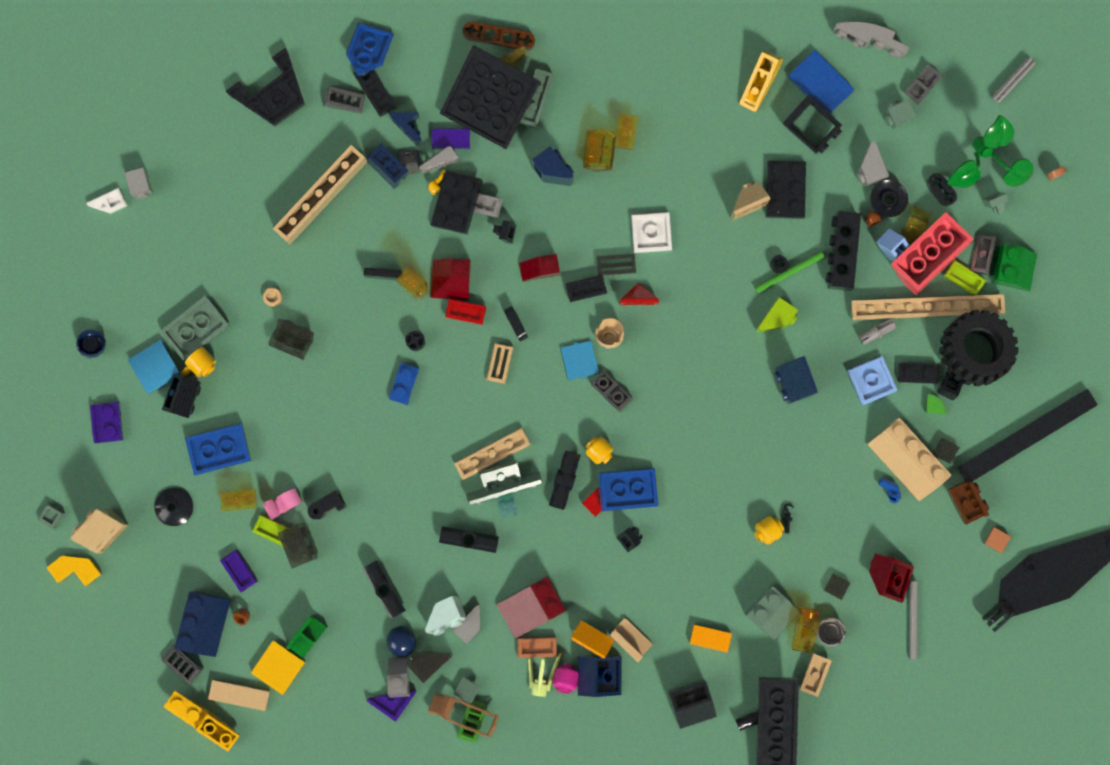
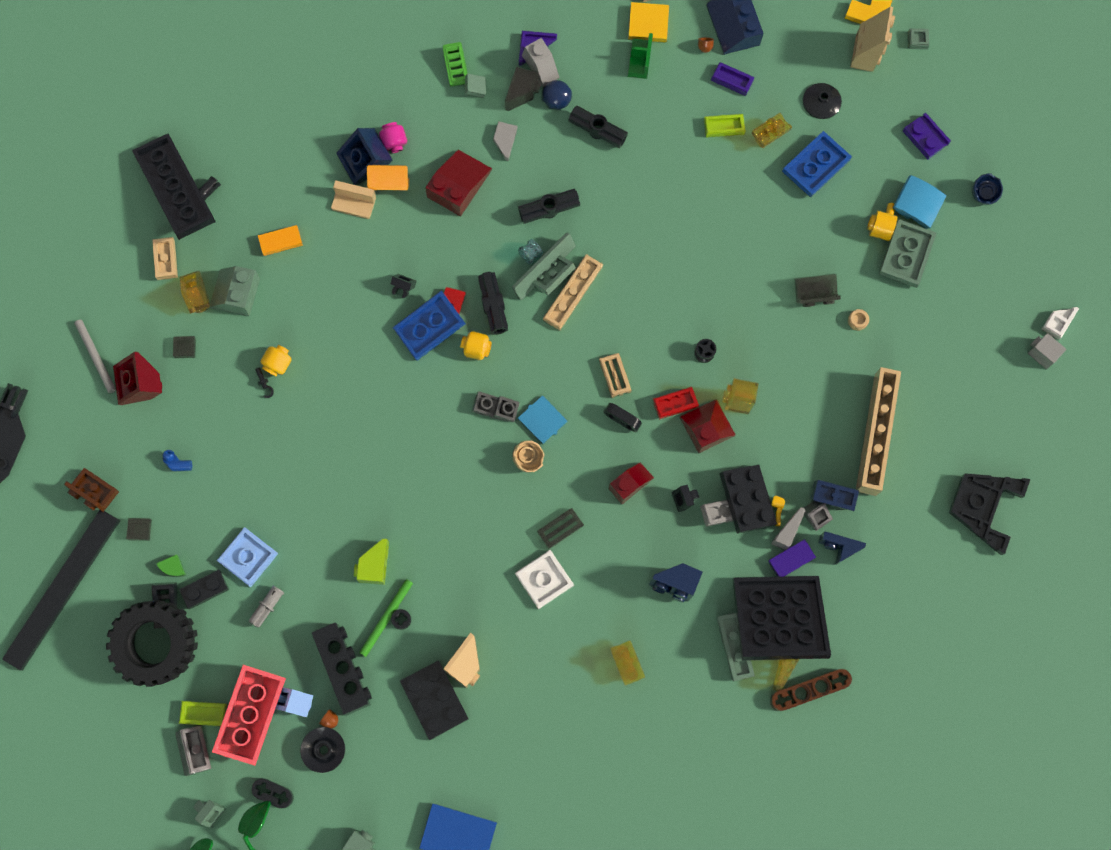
camera: 150 degrees right, 10 degrees down
(181, 395) = (879, 187): black brick -> none
(282, 503) = (731, 149): bright pink leg -> none
(298, 545) = (695, 122): clear smoke bracket -> none
(322, 506) = (688, 175): black leg -> none
(342, 106) = (932, 531): dark grey slope -> none
(368, 48) = (927, 600): blue tile -> none
(376, 93) = (894, 563): black plate -> none
(381, 274) = (773, 393): black tile -> none
(404, 384) = (691, 309): blue plate -> none
(443, 705) = (488, 60): medium nougat piece -> none
(445, 614) = (531, 133): light aqua slope -> none
(537, 647) = (434, 152): nougat tile -> none
(539, 686) = (414, 122): yellowish green plant -> none
(586, 288) = (575, 488): black plate -> none
(599, 150) = (642, 628): clear yellow brick -> none
(639, 296) = (520, 509): red slope -> none
(692, 703) = (268, 176): black slope -> none
(761, 80) = (522, 800): yellow slope -> none
(795, 380) = (322, 507): dark blue slope -> none
(831, 632) = (168, 300): light grey hair -> none
(834, 133) = (420, 766): black window -> none
(872, 167) = (358, 773): light grey slope -> none
(909, 459) = (171, 499): tan slope -> none
(915, 225) = (281, 738): clear yellow bracket -> none
(925, 307) = (225, 661): tan plate -> none
(997, 540) = (46, 472): nougat tile -> none
(1014, 267) = (155, 752): green slope -> none

